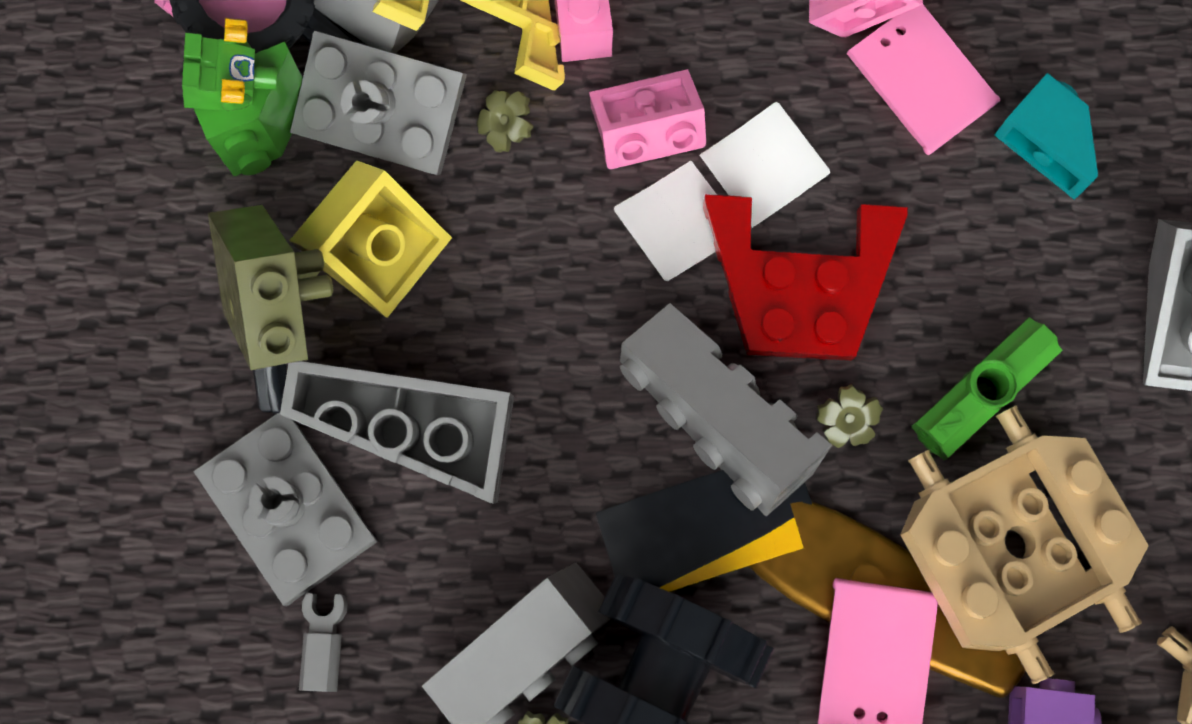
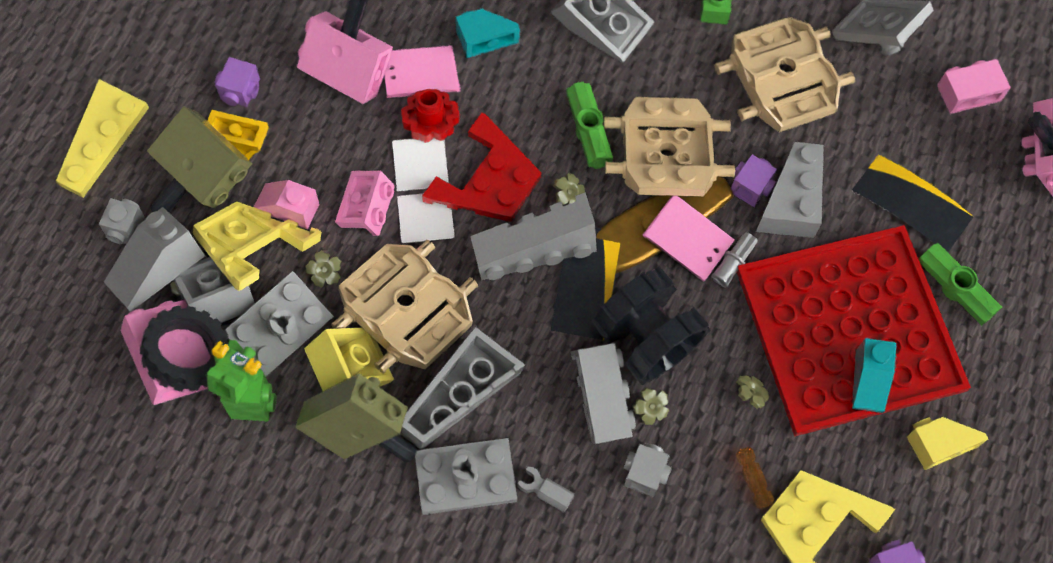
camera: 65 degrees left, 10 degrees down
(495, 210) = (372, 302): none -> tan piece
(852, 132) = (430, 115): none -> red plant

